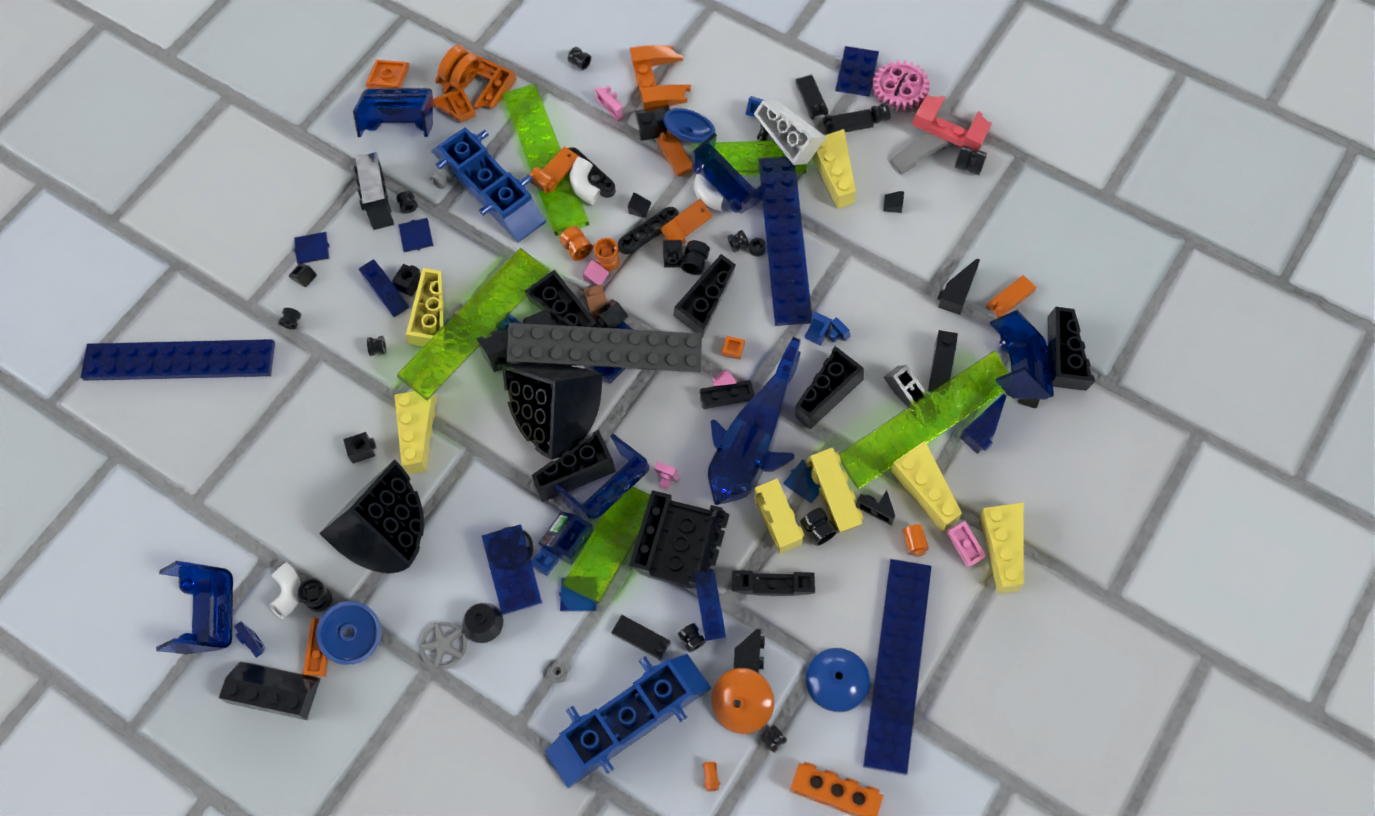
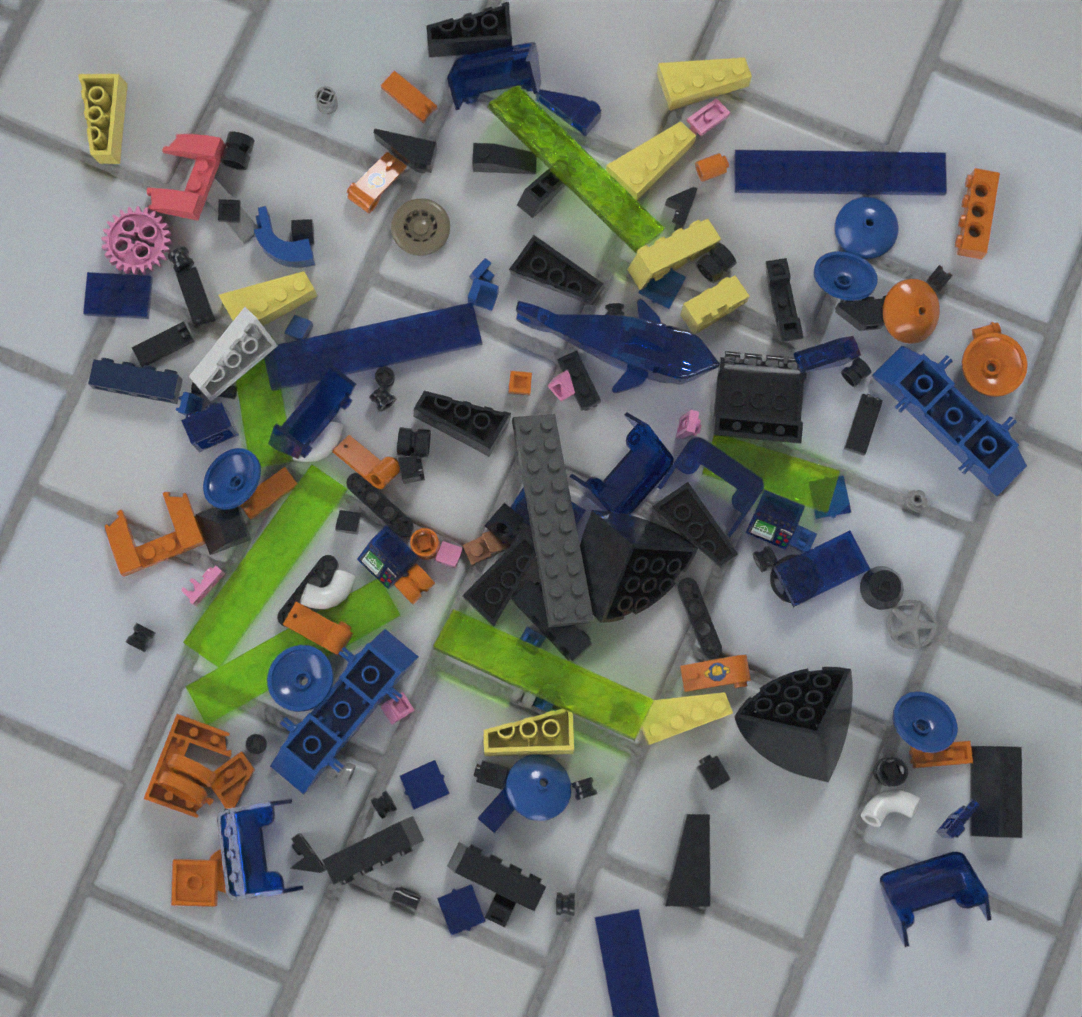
camera: 105 degrees left, 15 degrees up
(288, 417) = (691, 865): none -> black wedge
(326, 269) = (497, 877): none -> black wedge
(332, 208) = (405, 898): none -> black pin
(381, 323) = (529, 796): none -> blue dish
(385, 147) = (310, 861): none -> black slope
(441, 471) = (716, 673): none -> orange door
(479, 120) = (249, 742): none -> black bush
(481, 224) = (397, 711): none -> bright pink slope
(495, 464) = (696, 619): none -> black beam
(517, 149) = (287, 675): none -> blue dish
(533, 522) = (765, 558): none -> black wheel
(604, 225) = (387, 557): none -> clear blue slope
(618, 147) = (265, 566): none -> clear neon green plate
(627, 420) = (633, 475): none -> clear blue windscreen
(670, 756) = (1005, 357): none -> orange dish
(734, 114) = (209, 426): none -> clear blue brick
(783, 71) = (135, 381): none -> dark blue brick
(786, 433) = (614, 309): none -> black bush
(797, 641) = (845, 276): none -> blue dish
(809, 190) = (298, 328): none -> blue slope
(884, 177) = (290, 254): none -> blue arch
(885, 295) = (420, 227): none -> dark tan wheel
(917, 146) = (229, 210): none -> black tile
(932, 258) = (375, 181): none -> orange door
(1010, 71) = (105, 114): none -> light yellow wedge
(1012, 231) = (328, 104): none -> light grey wheel

